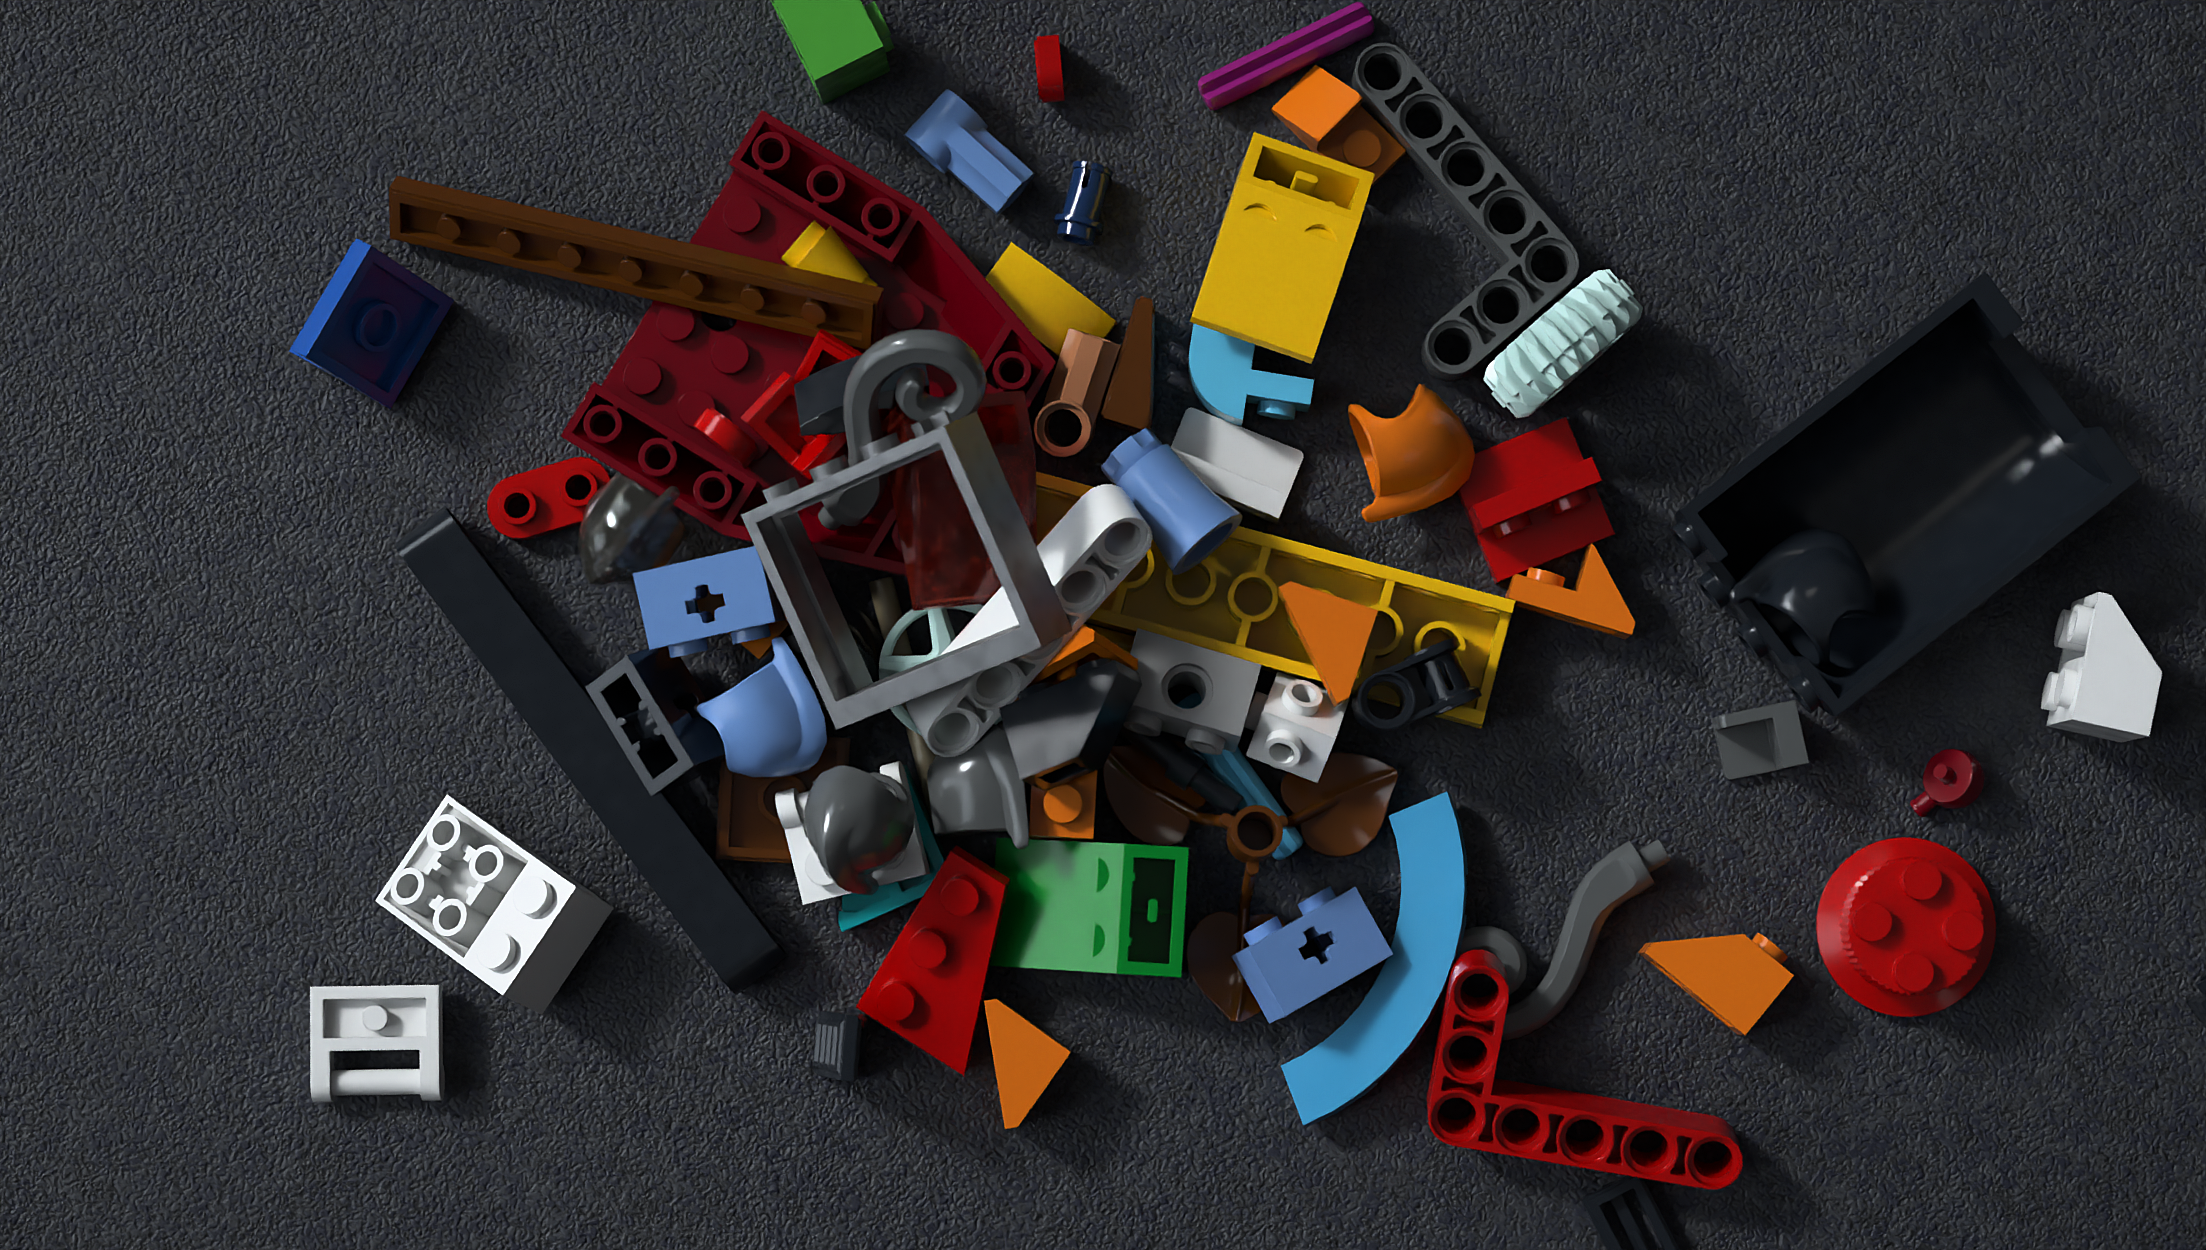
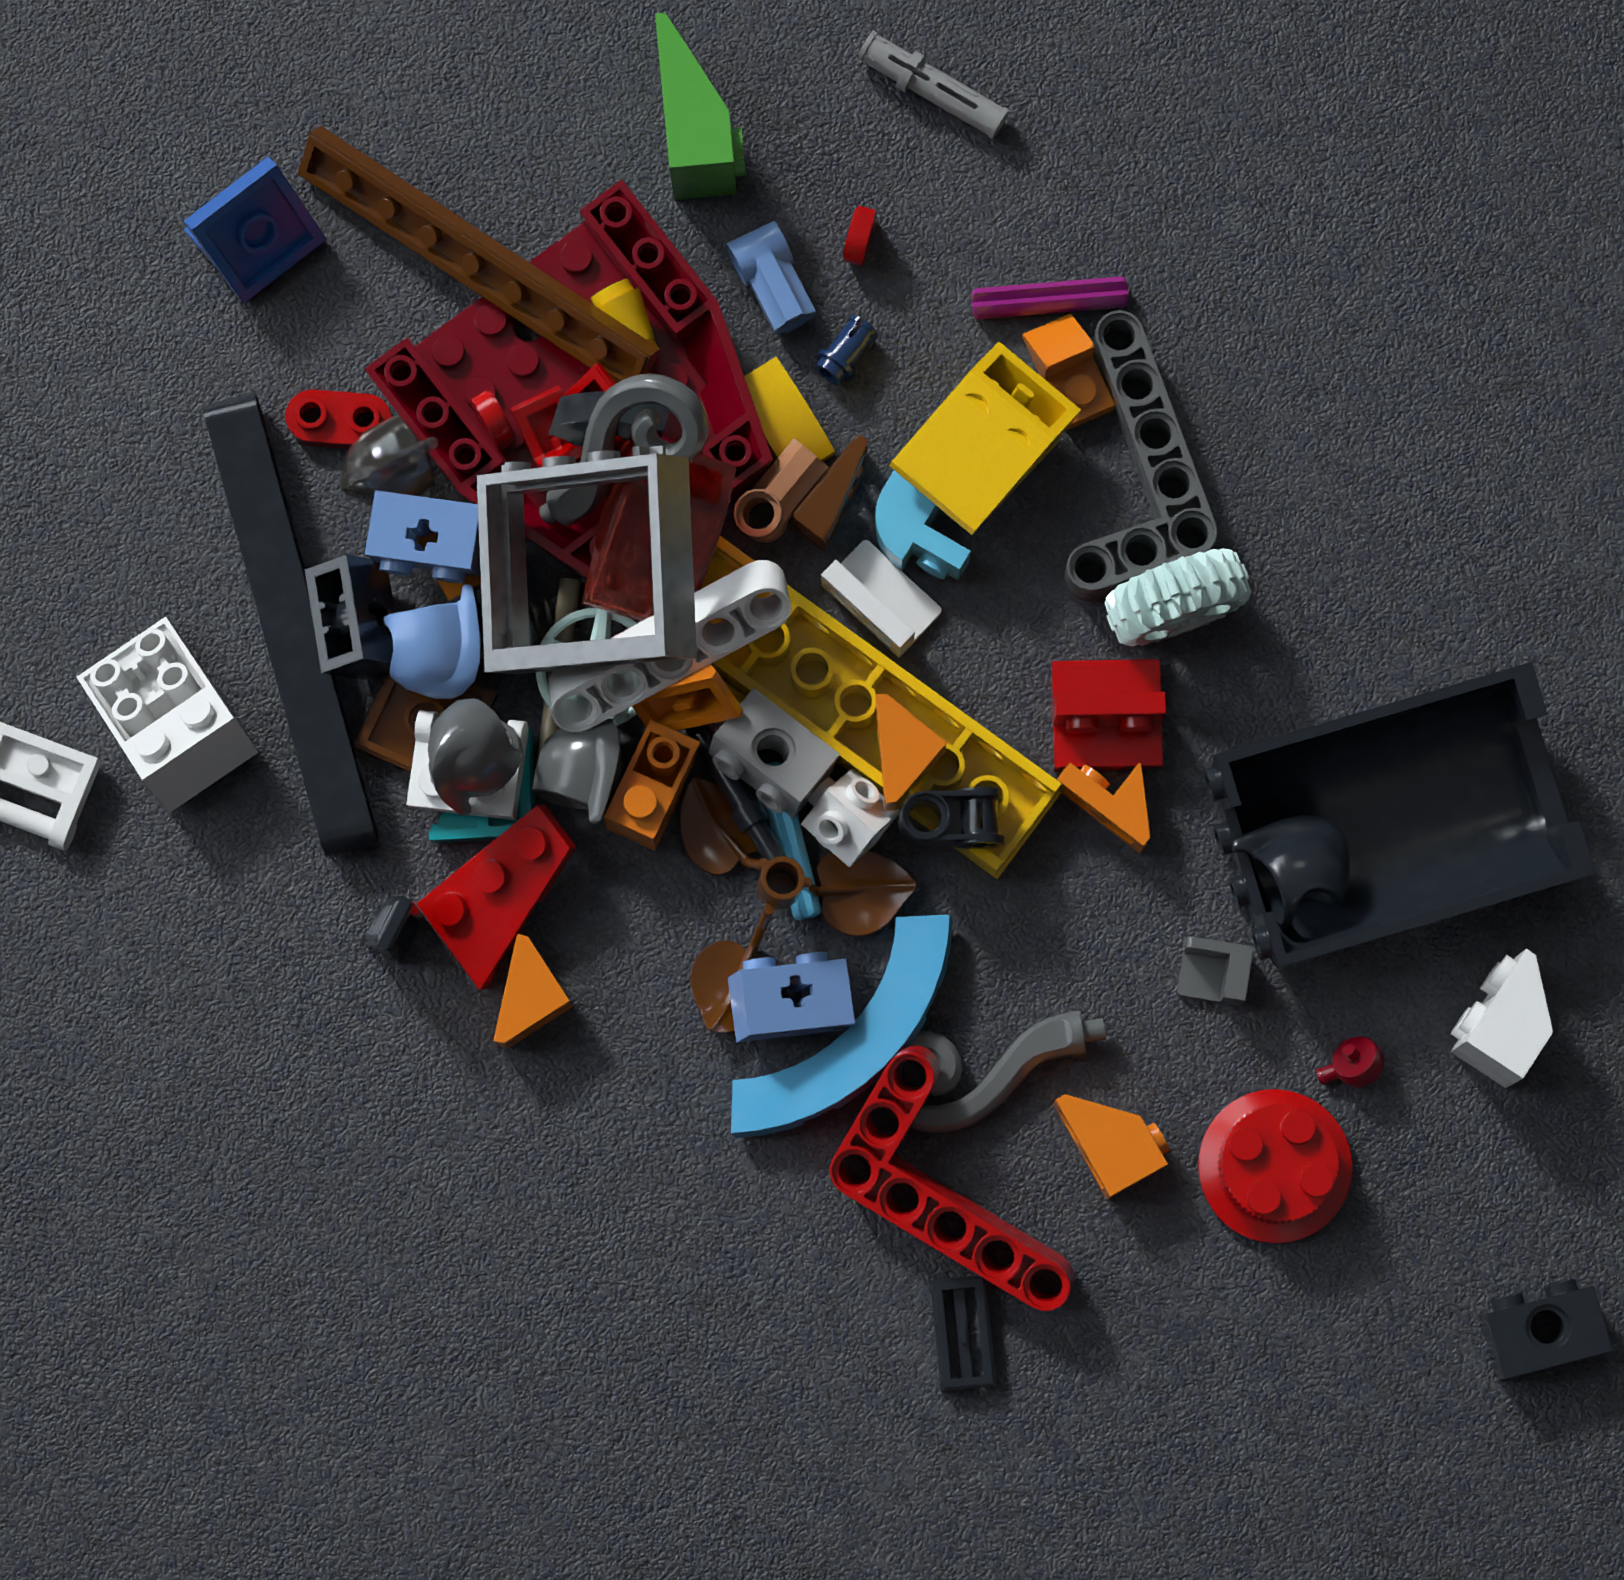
camera: 20 degrees right, 5 degrees down
(1069, 725) = (671, 738): black slope -> none
(1092, 907) = (634, 896): green slope -> none
(1177, 505) = (821, 604): medium blue plant -> none
(1413, 456) = (1026, 640): orange piece -> none

